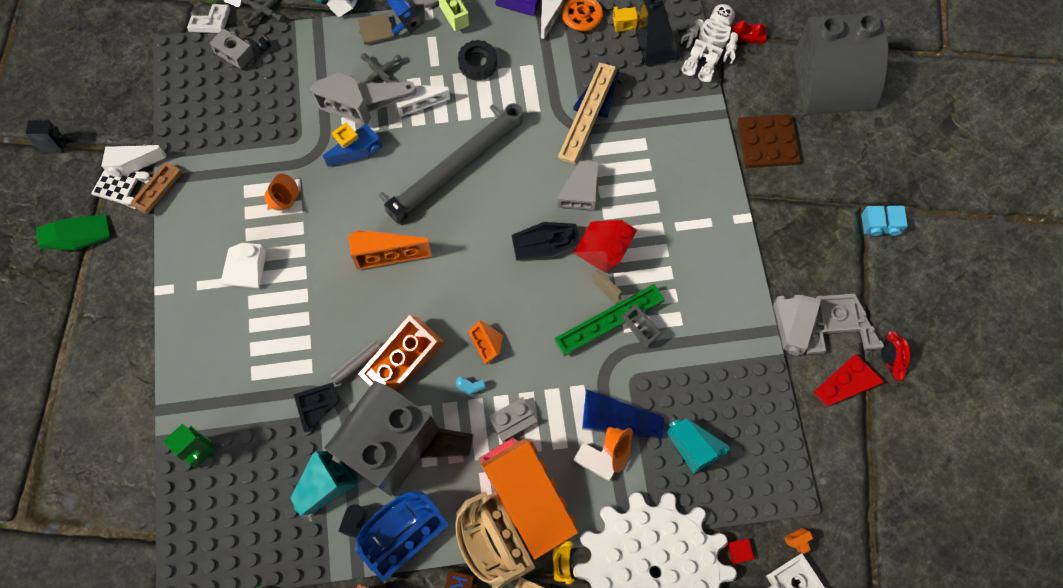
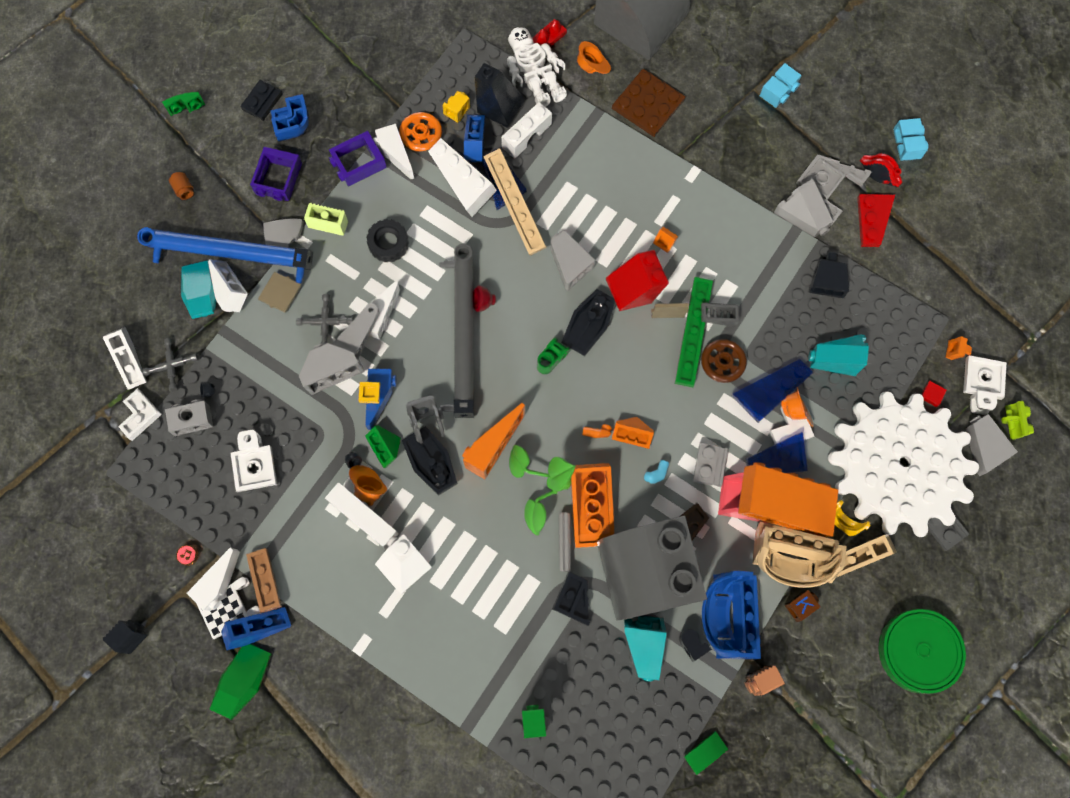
camera: 50 degrees left, 5 degrees up
(117, 210) = (254, 628): none -> blue slope
(137, 129) = (187, 555): none -> tile
(238, 104) = (252, 453): none -> white plate
(253, 206) = (362, 516): none -> white slope
(289, 170) = (348, 459): none -> black hinge
(322, 182) = (383, 444): none -> green slope
(337, 221) = (430, 461): none -> black piece
(357, 182) = (414, 414): none -> dark grey piece
(391, 311) = (558, 480): none -> bright green plant
(461, 316) = (604, 432): none -> orange arm
(493, 155) = (482, 299): none -> dark red brick
(493, 235) = (554, 354): none -> green piece
(566, 468) = (785, 455): none -> clear blue wing
(571, 65) = (464, 179): none -> white wedge
(610, 48) = (474, 138): none -> blue slope
(616, 348) = (737, 353): none -> reddish brown plate
(664, 239) = (665, 239): none -> orange tile
(666, 74) = (517, 137): none -> white arch
(756, 384) = (830, 277): none -> black torso
(759, 73) = (591, 59): none -> orange piece
(946, 355) = (910, 133): none -> medium azure piece

